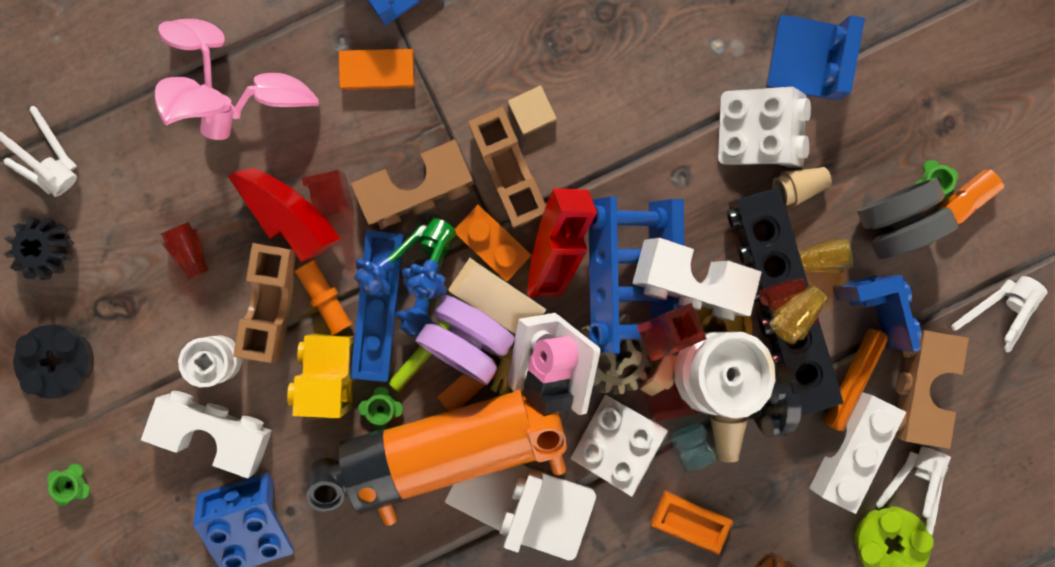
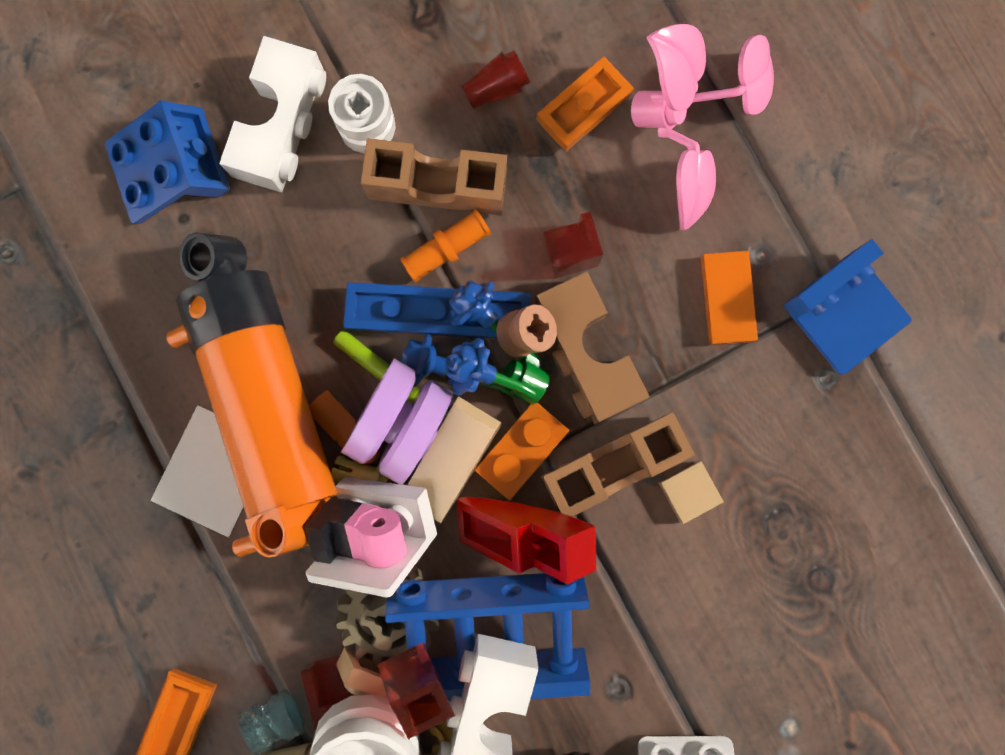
camera: 85 degrees right, 5 degrees down
(207, 176) = (584, 104): none -> orange plate
(284, 213) = (546, 194): red slope -> none
(325, 383) = (334, 251): yellow brick -> none
(391, 408) = (311, 308): bright green plate -> none
(404, 240) = (520, 341): none -> nougat wheel
(548, 514) = (181, 536): white bracket -> none
(619, 445) = (271, 625): white hinge -> none

